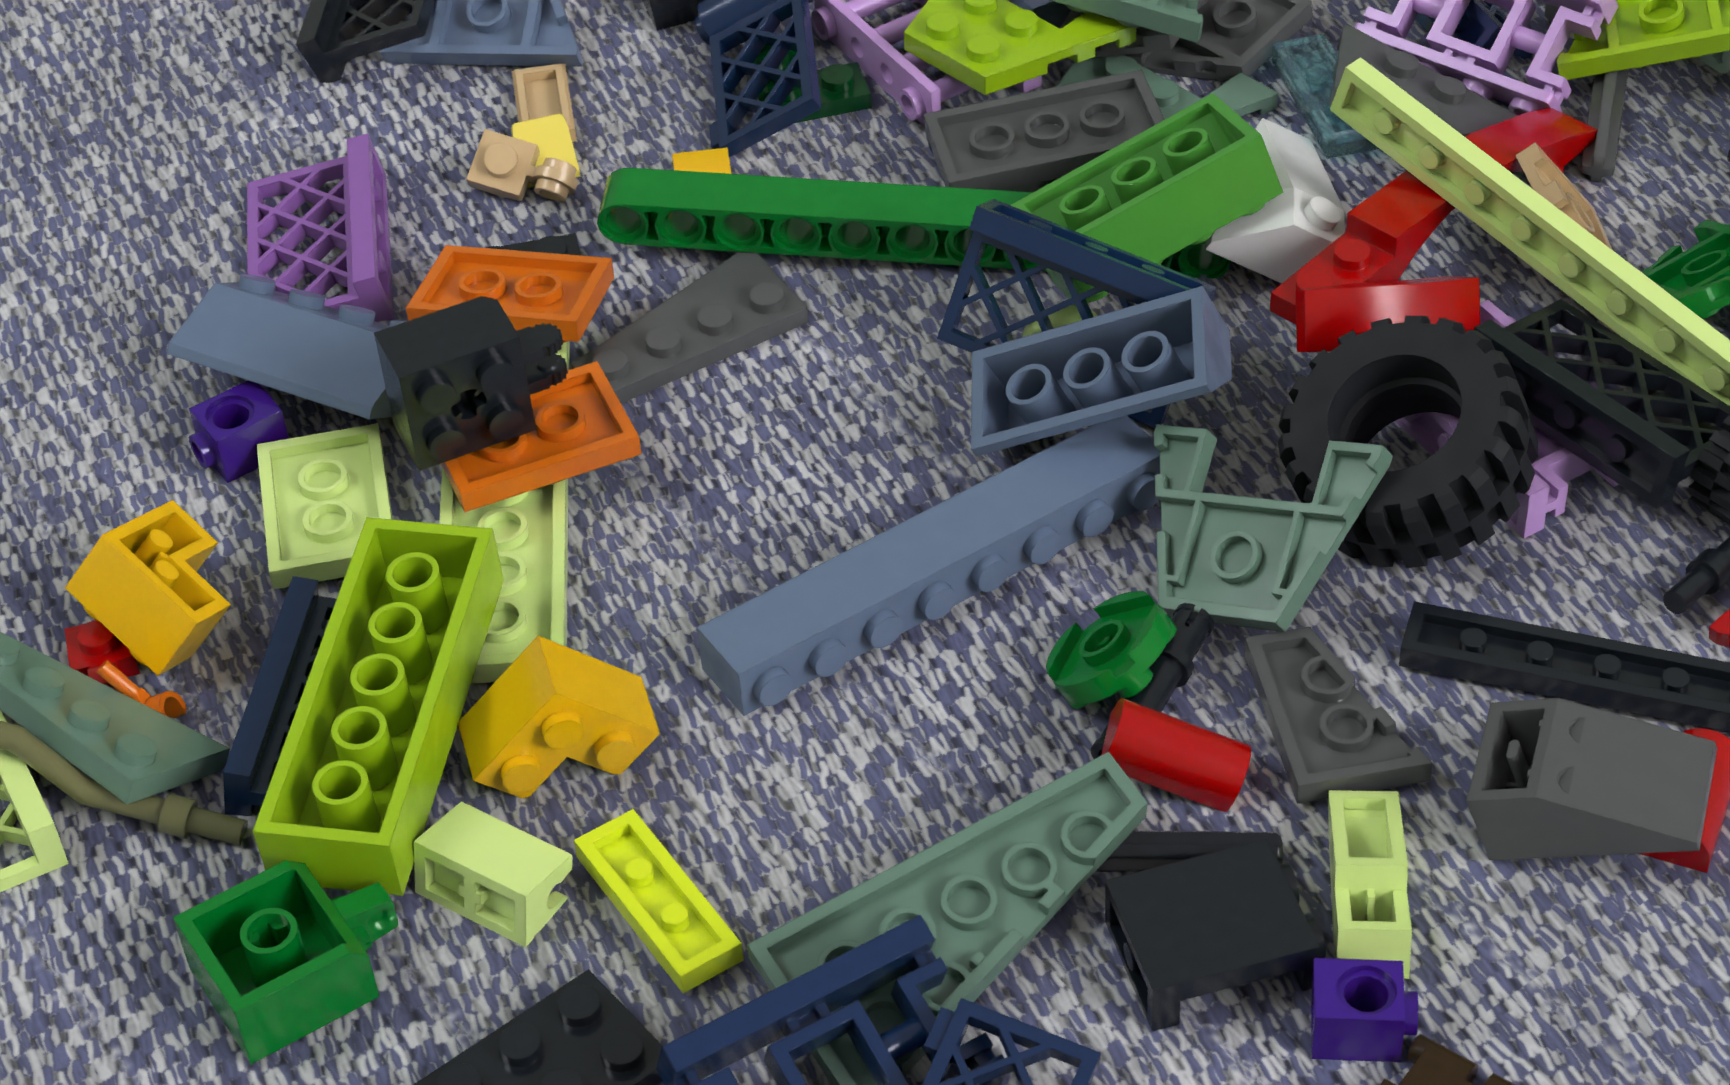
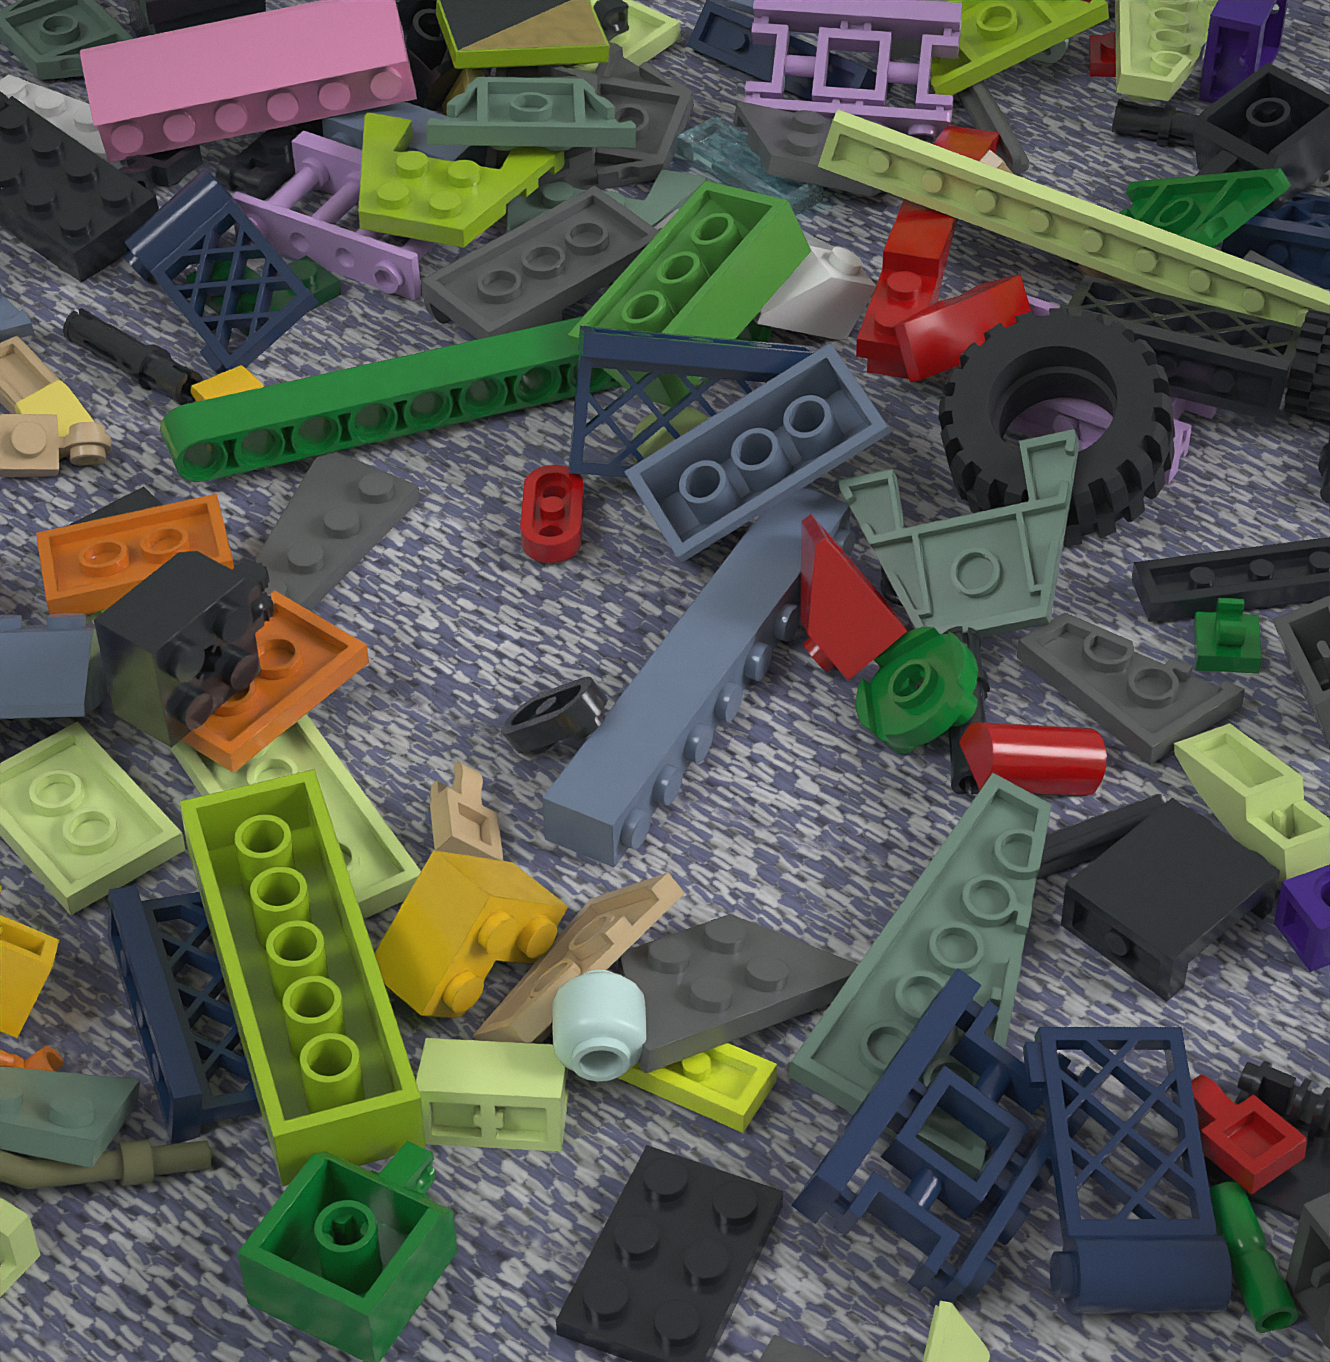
camera: 30 degrees left, 0 degrees up
(595, 845) = (599, 1025): none -> light aqua head
(628, 788) = (588, 943): none -> tan wing
(629, 626) = (461, 820): none -> tan plate
(651, 120) = (146, 364): none -> black pin
(738, 854) = (725, 984): none -> dark grey wing
(767, 560) = (556, 715): none -> black plate
(896, 380) = (552, 514): none -> red plate
(1091, 538) = (840, 606): none -> red slope
(1459, 709) = (1227, 639): none -> green tile

